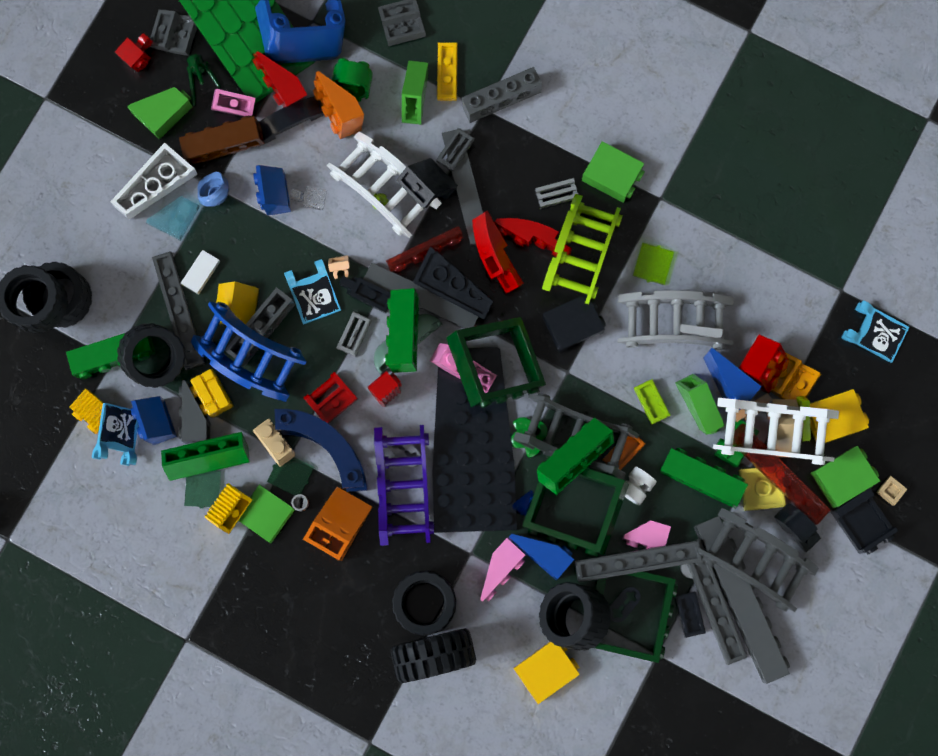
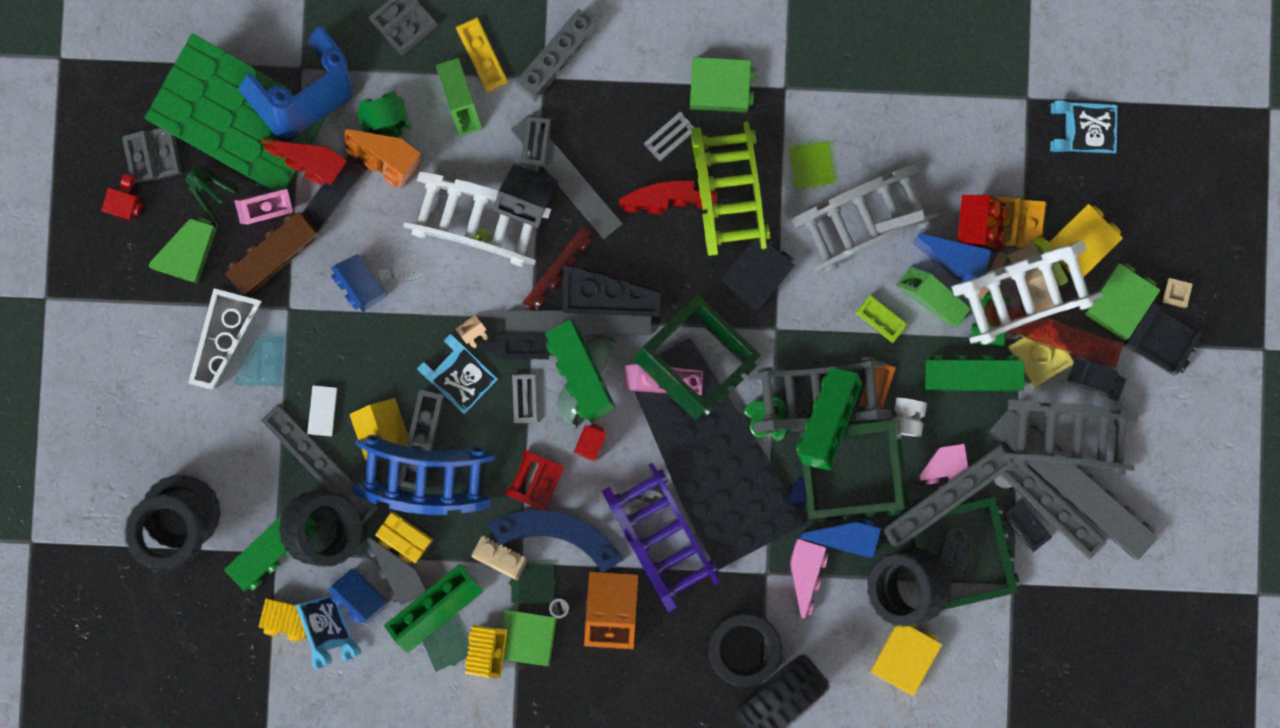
camera: 30 degrees left, 5 degrees up
(213, 189) = (290, 313): medium blue hat -> none
(490, 247) = (630, 235): red slope -> none

